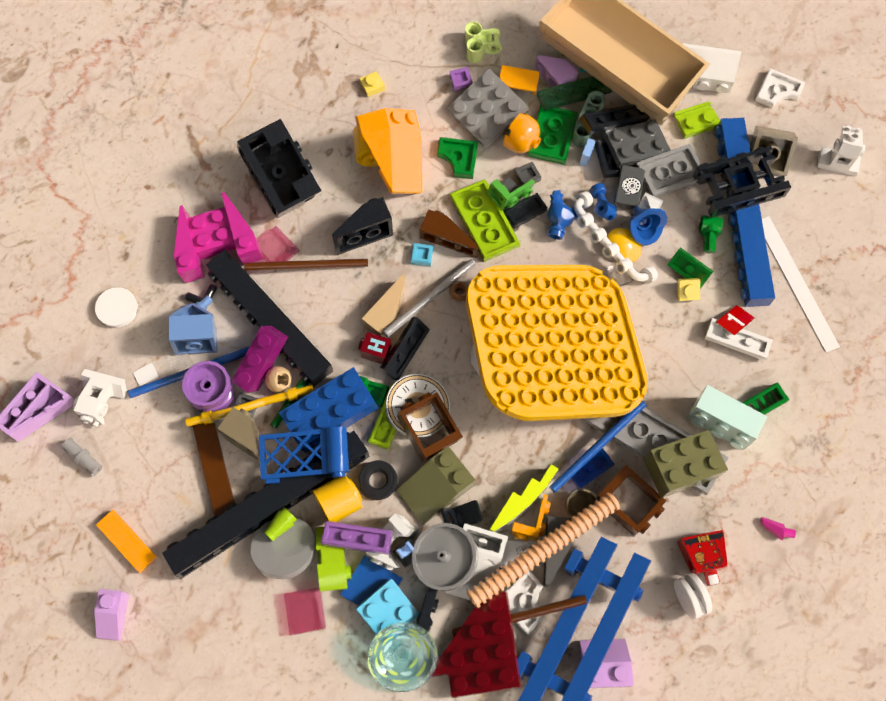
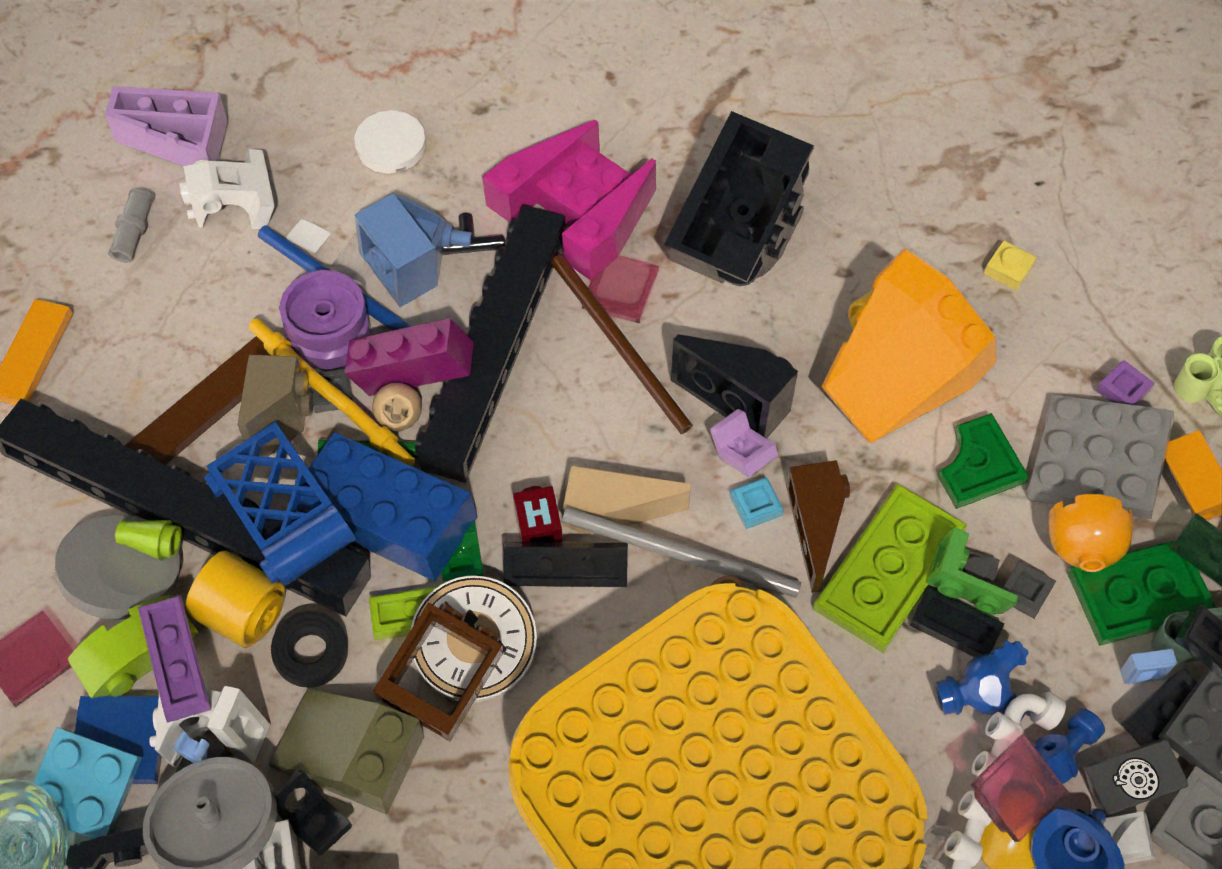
camera: 60 degrees right, 10 degrees down
(394, 243) = (742, 446): none -> lavender bracket
(614, 230) = (1018, 789): none -> clear pink piece

